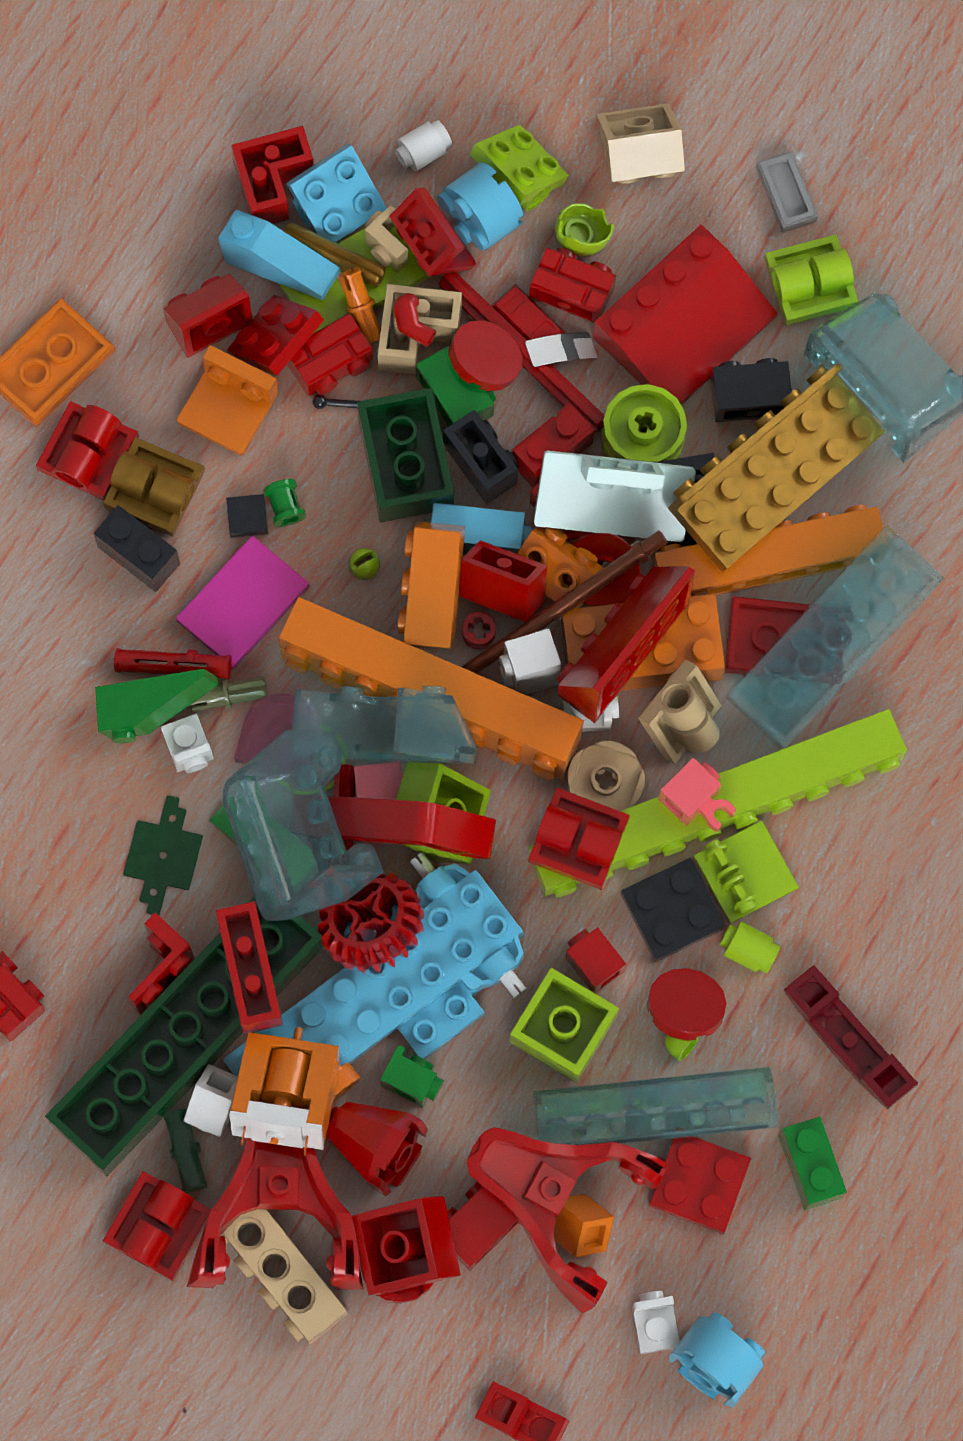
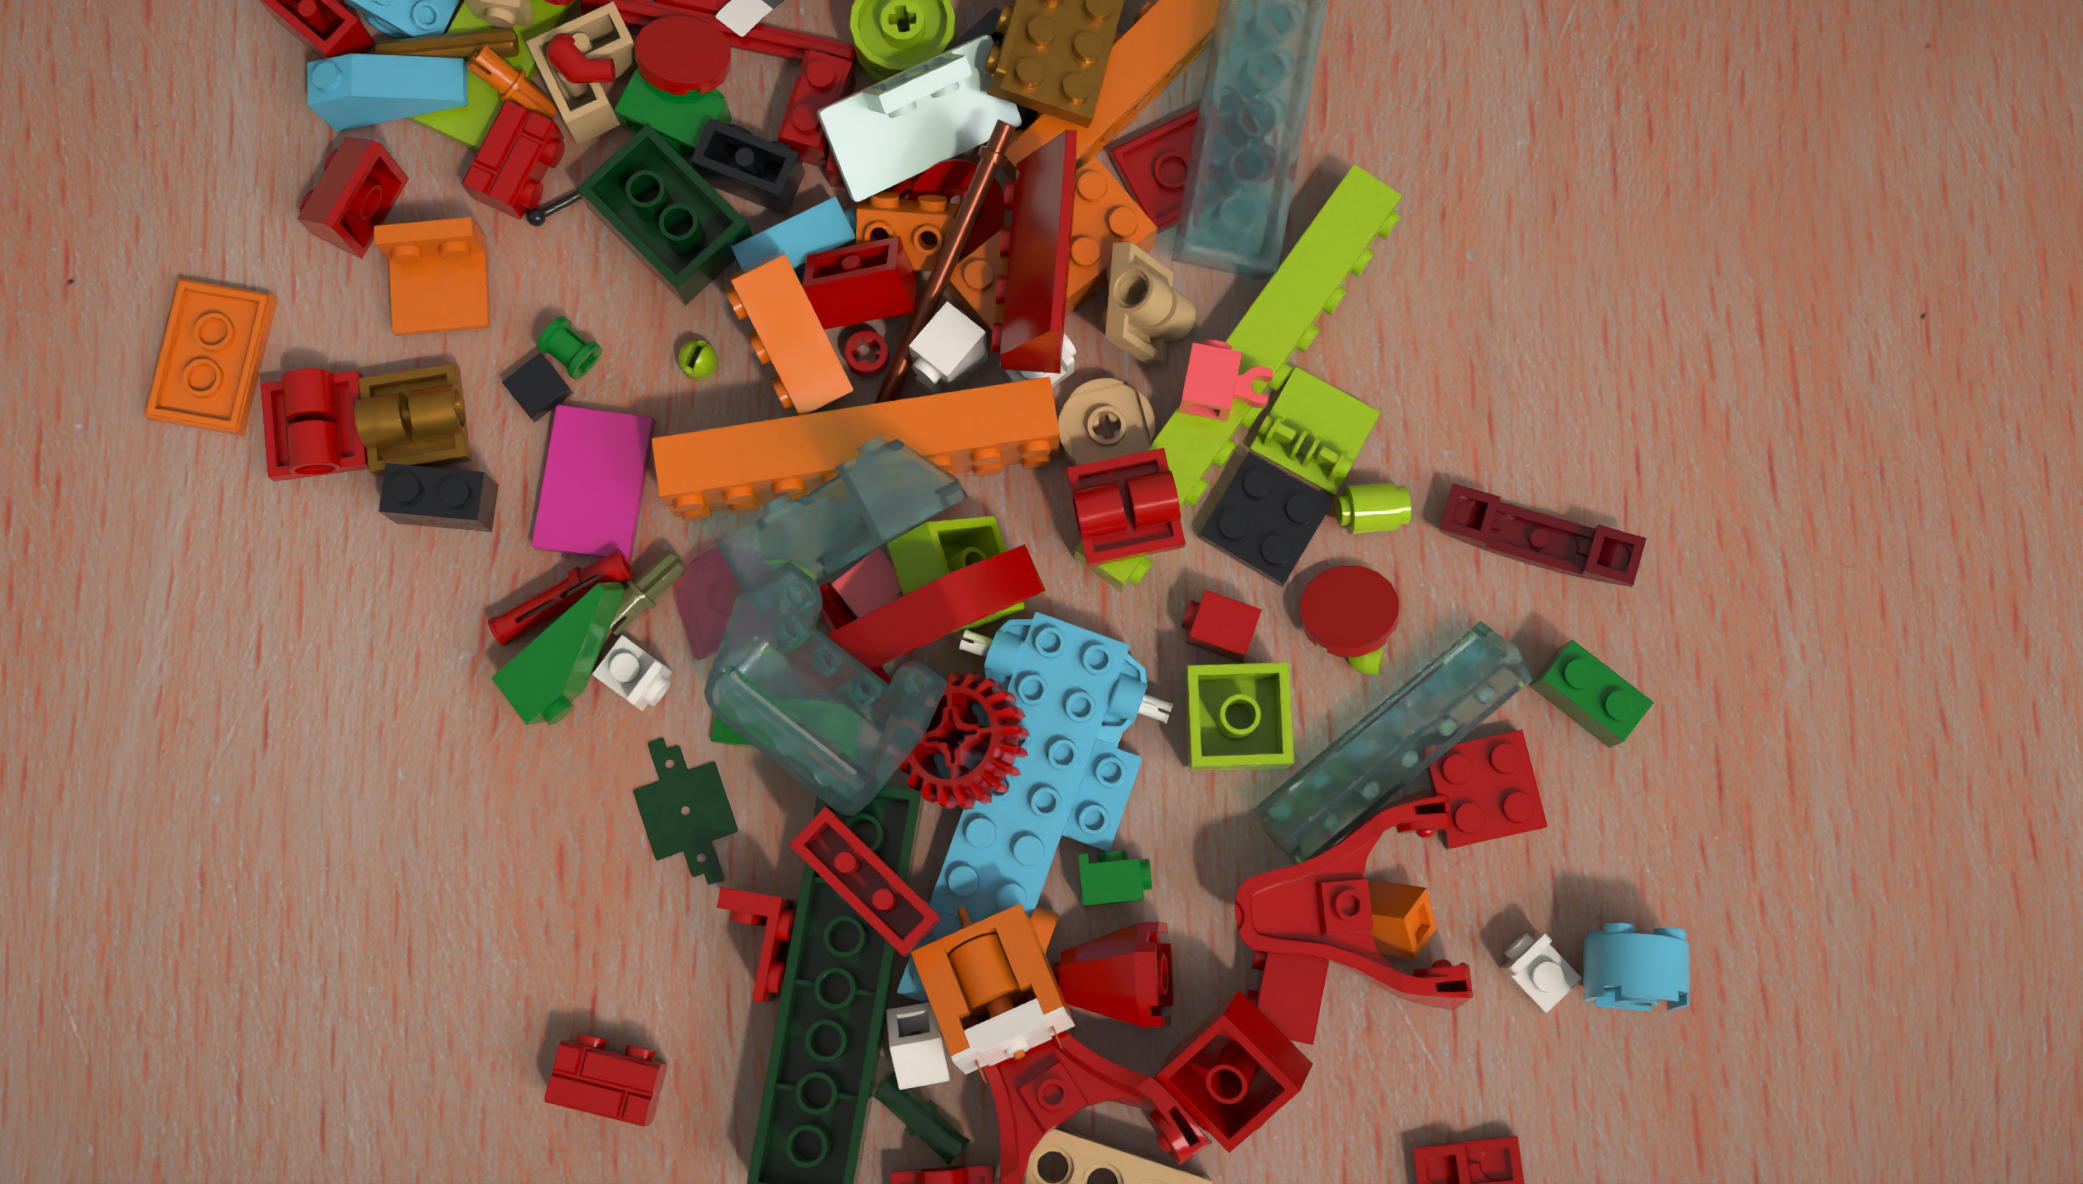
camera: 30 degrees left, 5 degrees up
(275, 334) = (440, 171): red plate -> none

